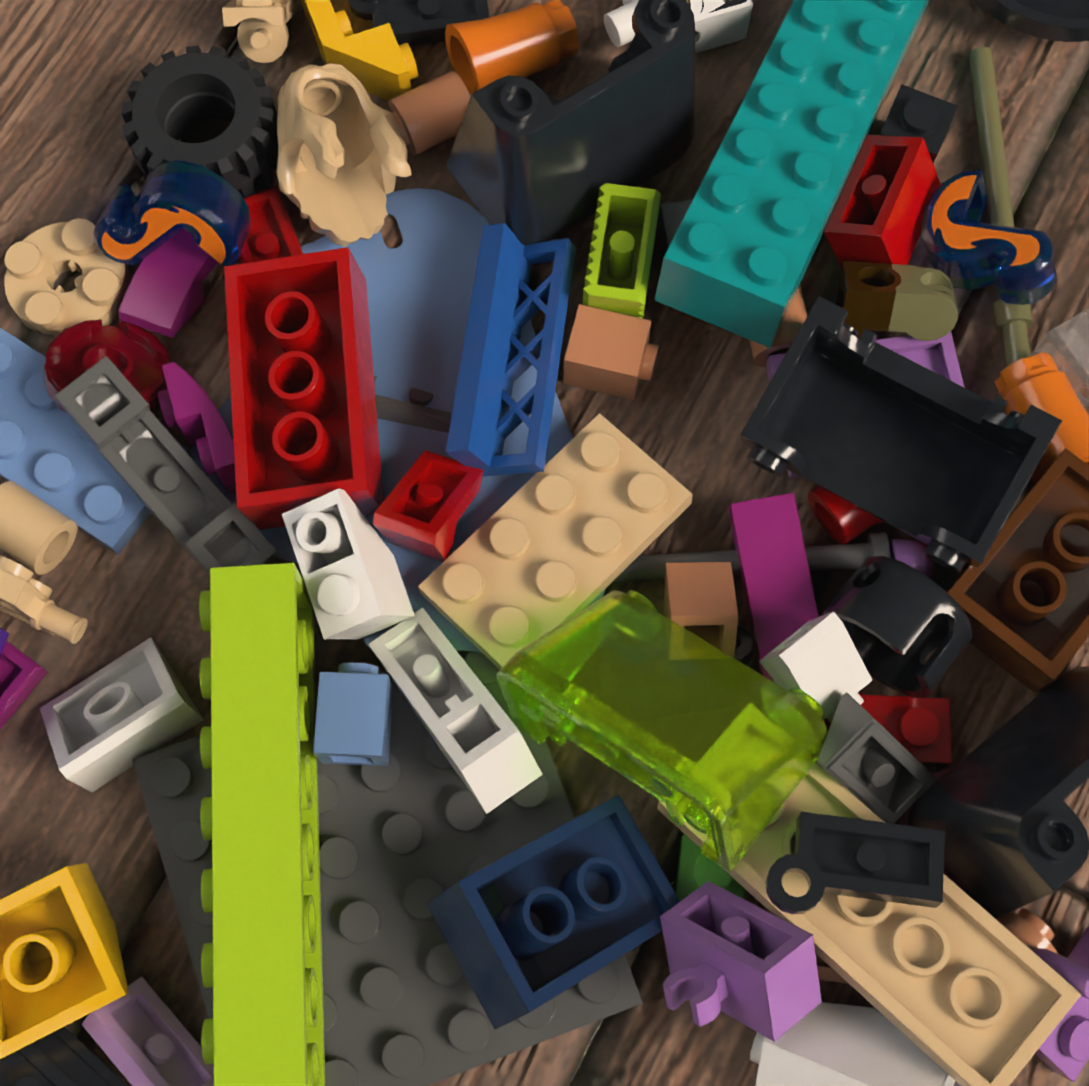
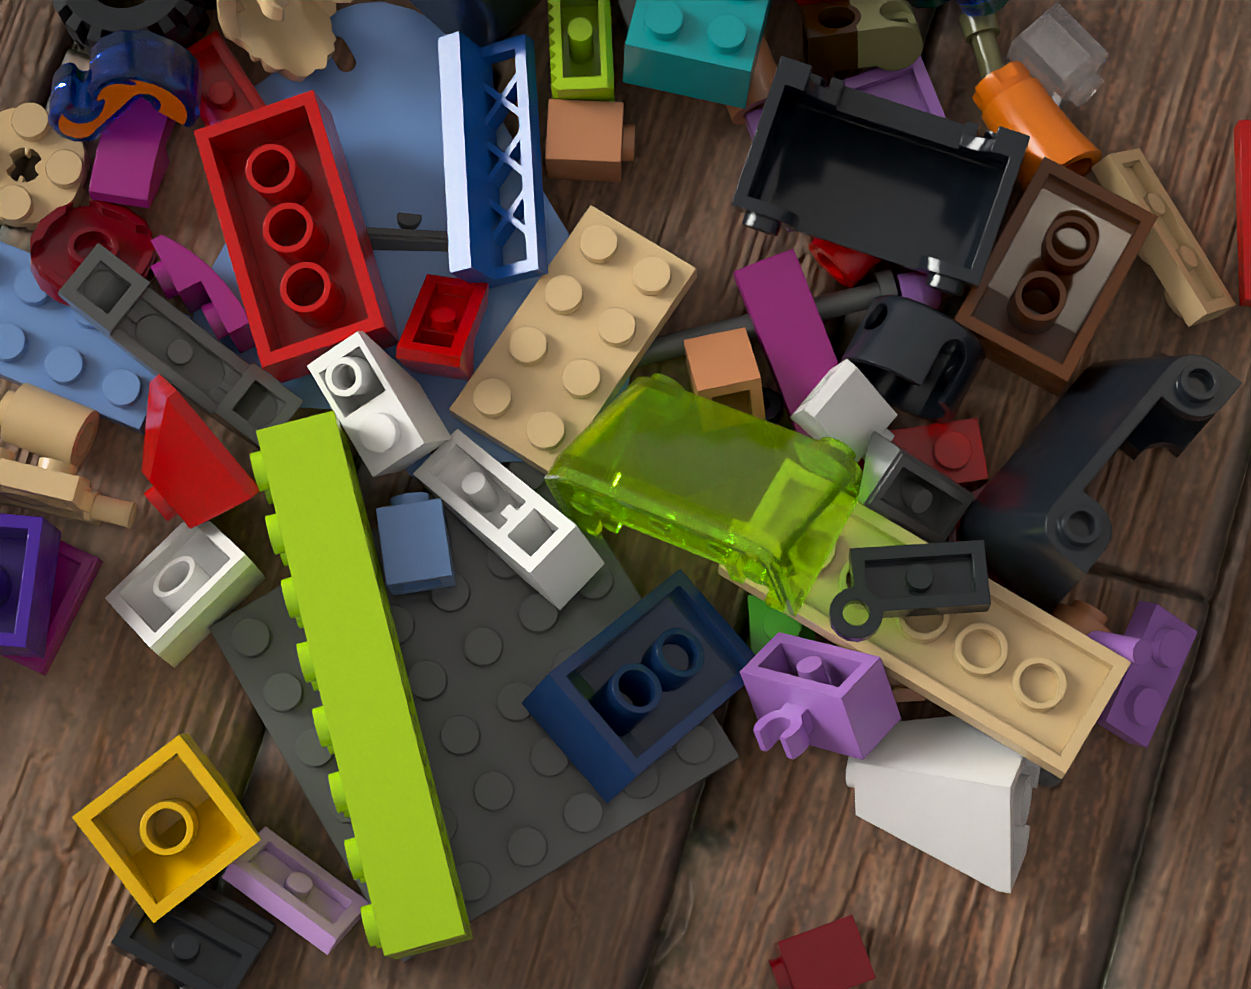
camera: 10 degrees left, 5 degrees up
(146, 589) = (187, 462): none -> red slope

